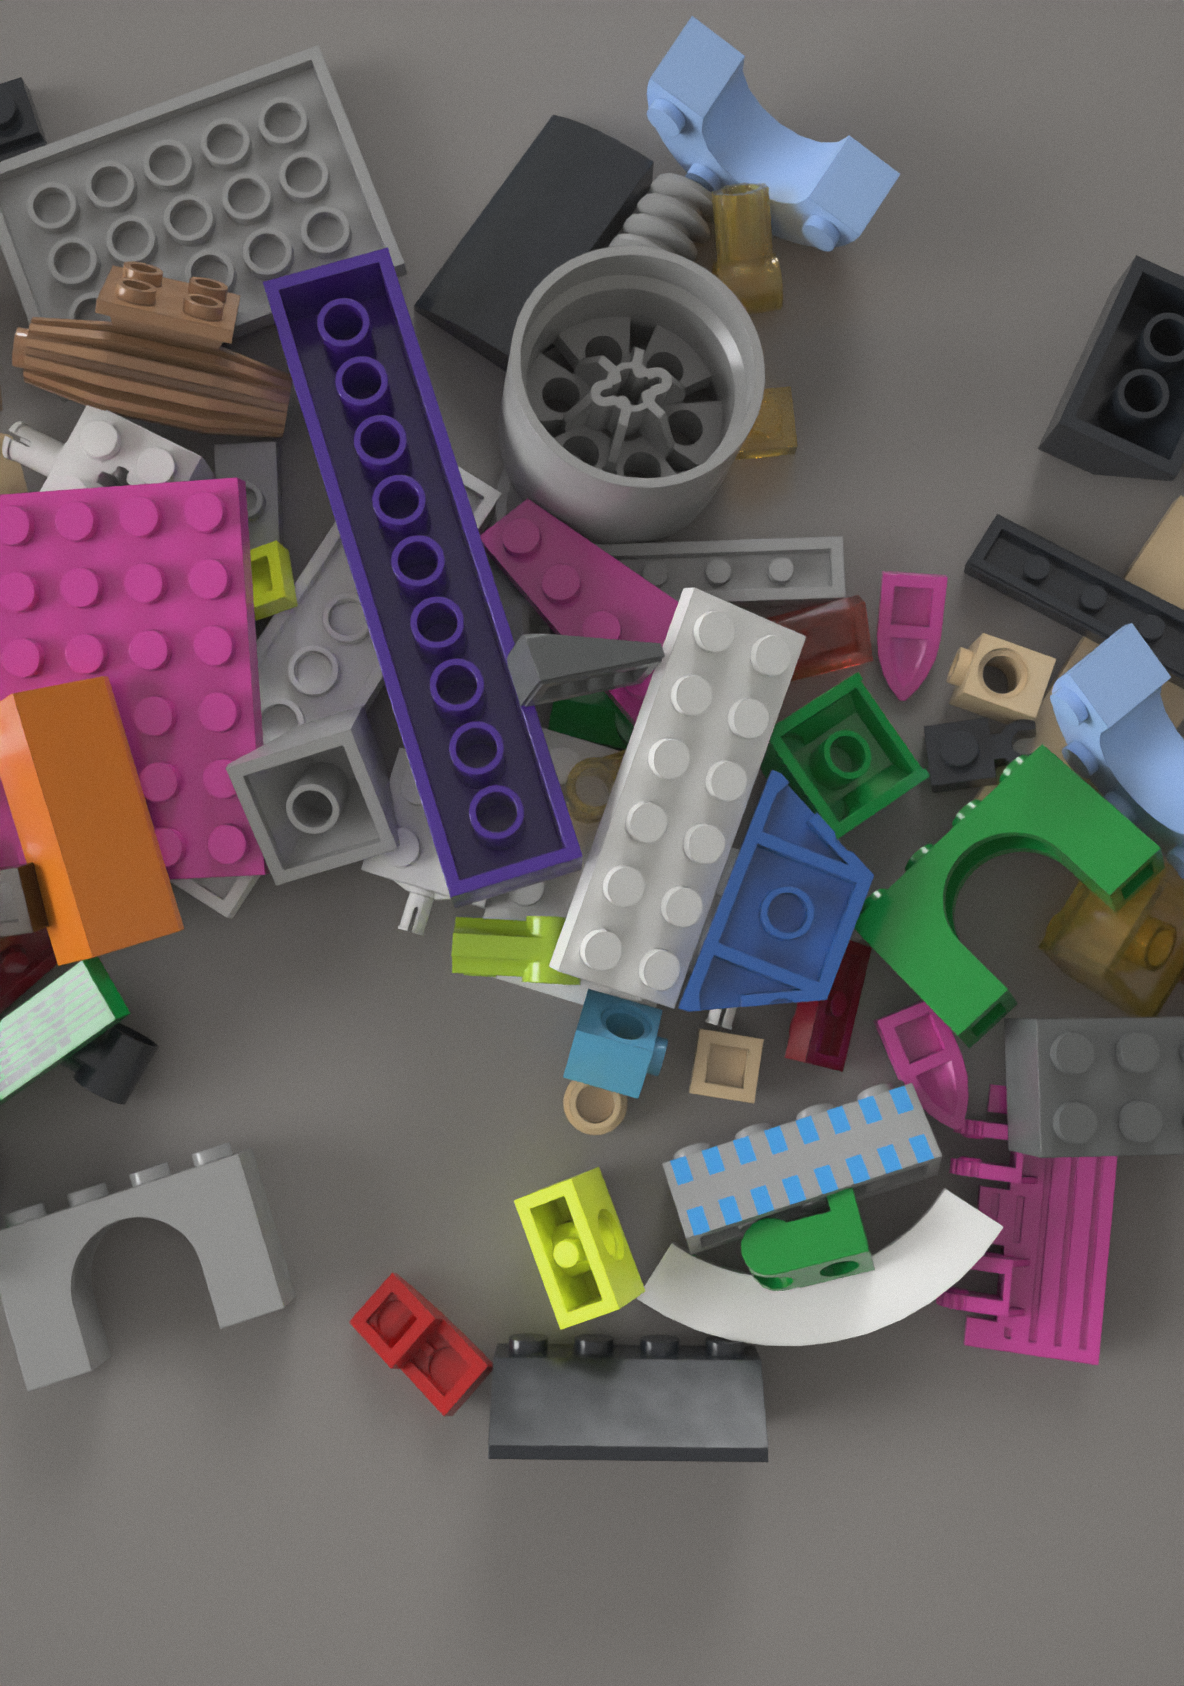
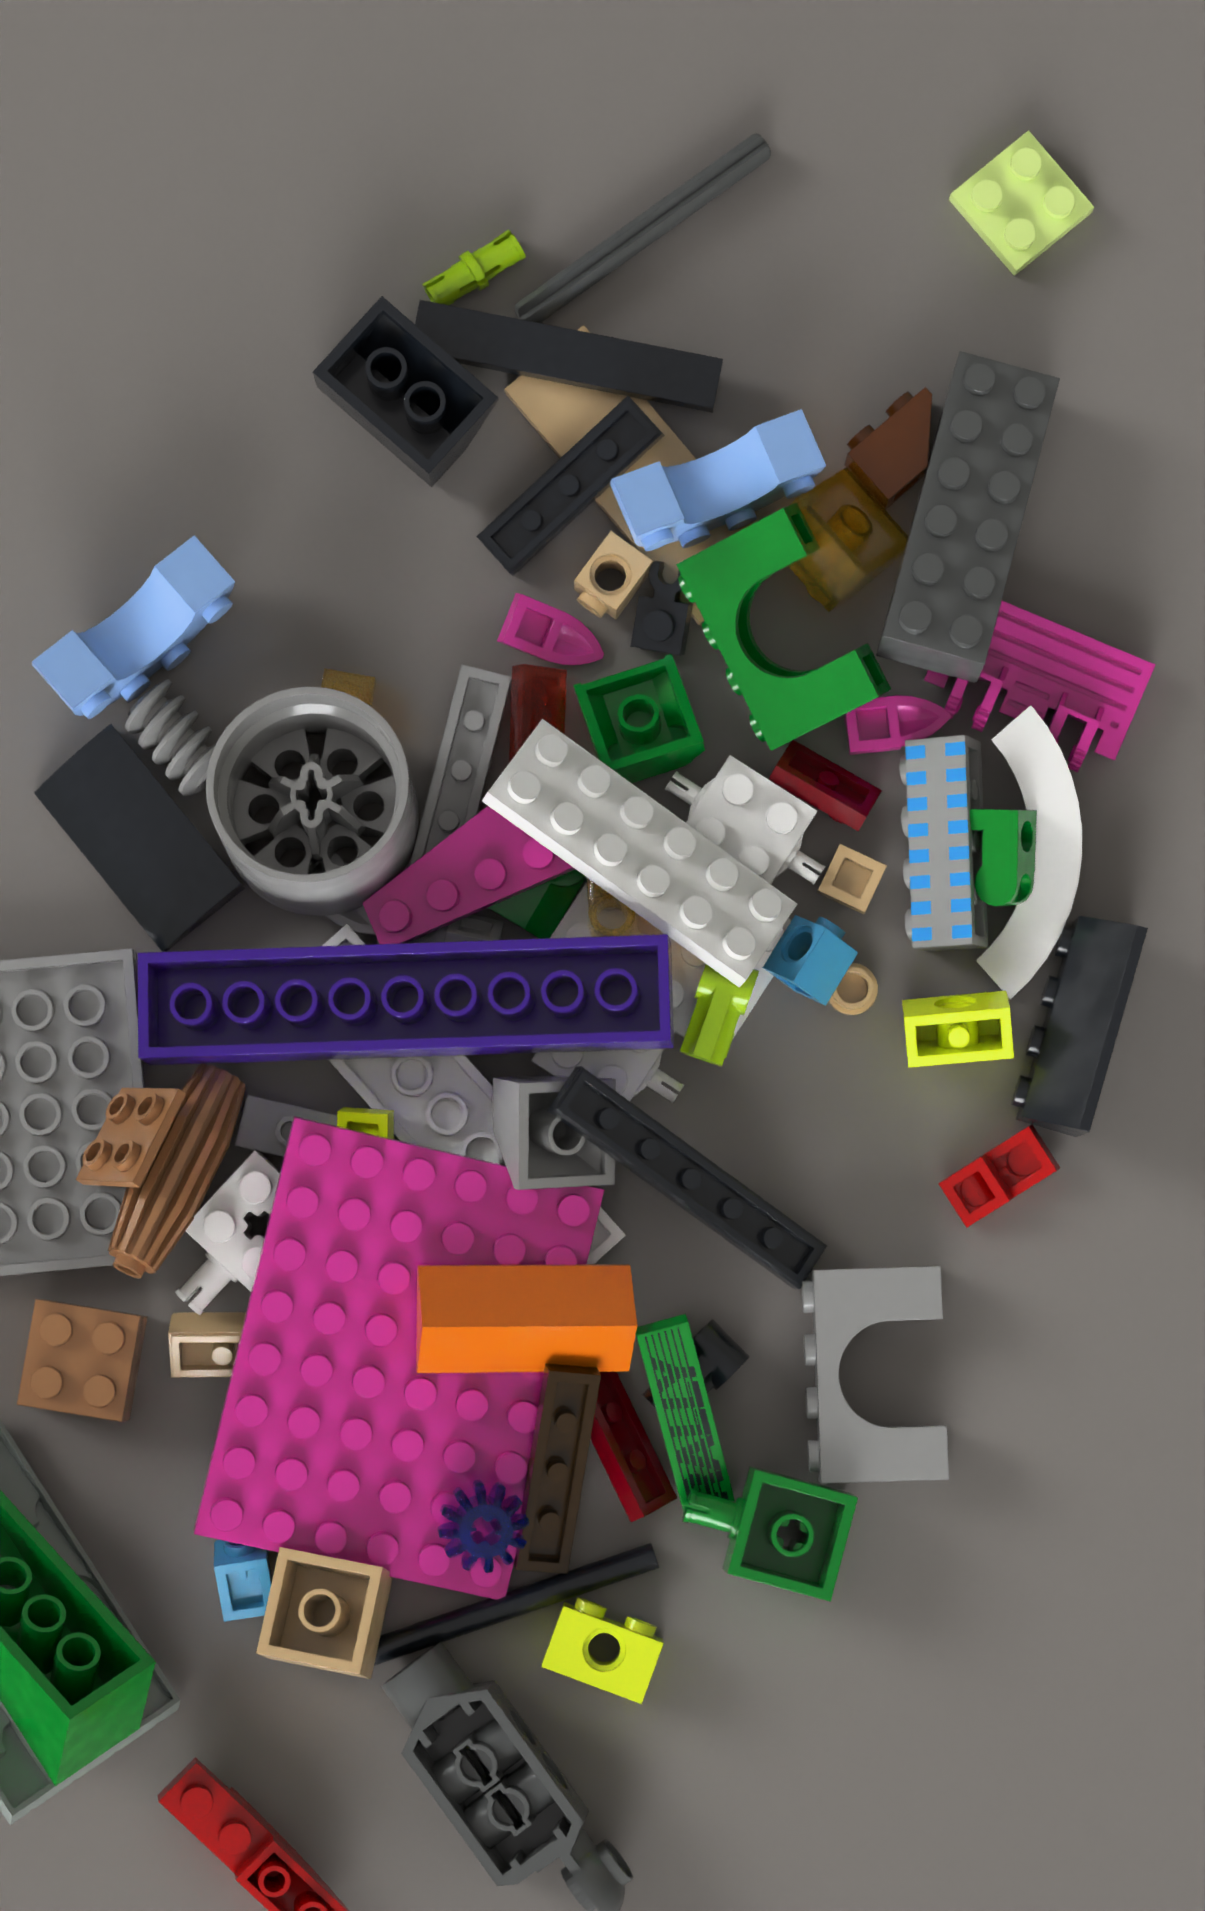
camera: 75 degrees left, 0 degrees up
(307, 966) = (687, 1177): none -> black tile
(567, 667) = (521, 908): dark grey slope -> none
(745, 246) = (218, 673): clear yellow piece -> none
(781, 911) = (746, 800): blue wing -> none

